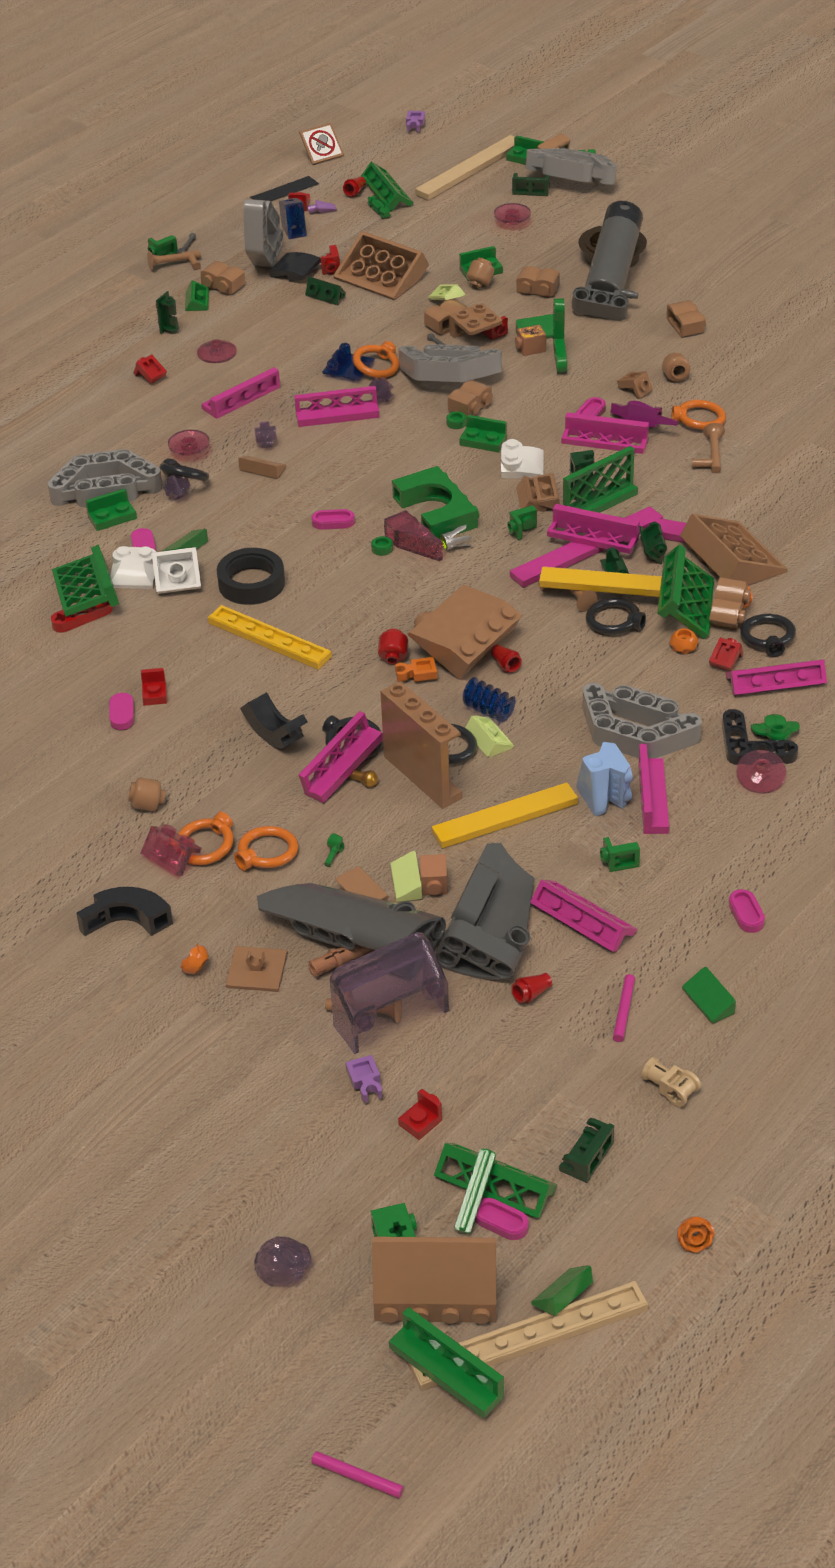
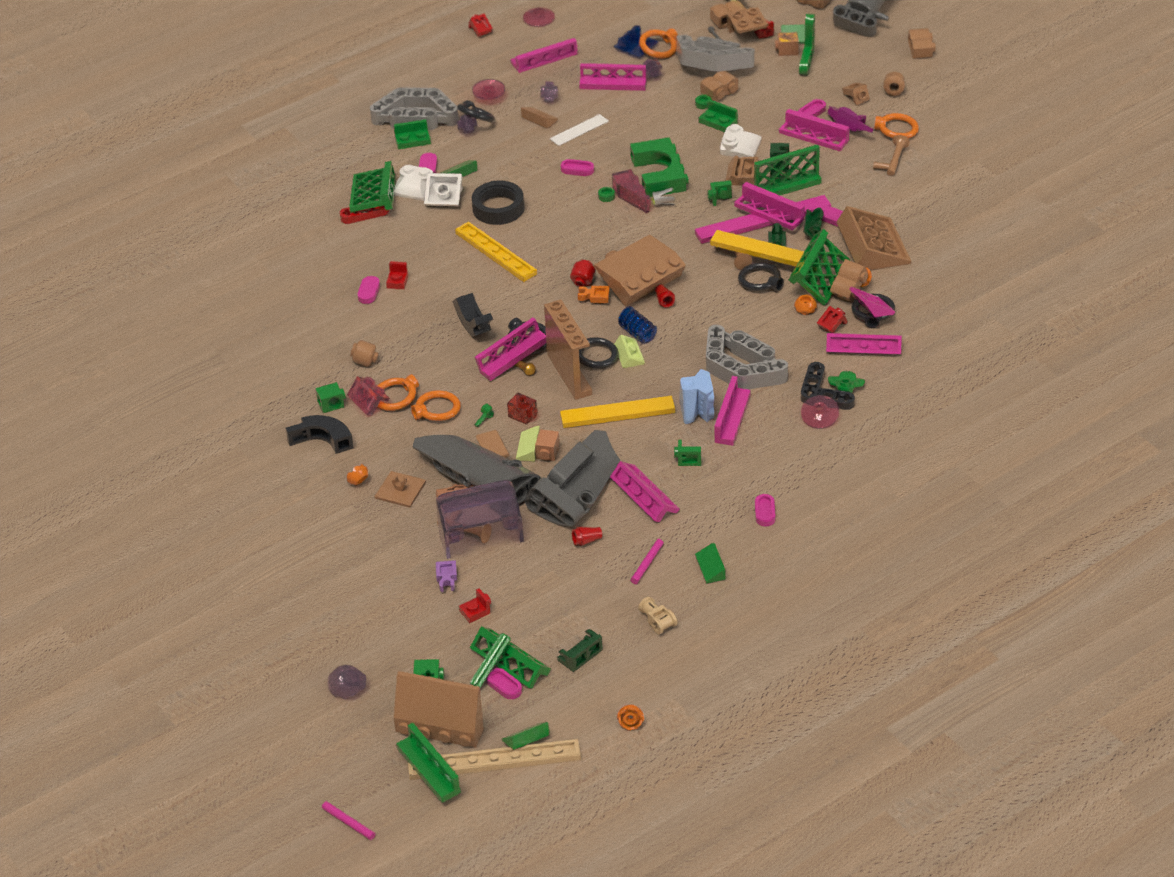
camera: 15 degrees right, 0 degrees up
(120, 861) = (330, 397): none -> green brick
(316, 474) = (579, 129): none -> white sticker
(382, 832) = (522, 408): none -> clear red brick
(769, 626) = (872, 303): none -> dark pink slope

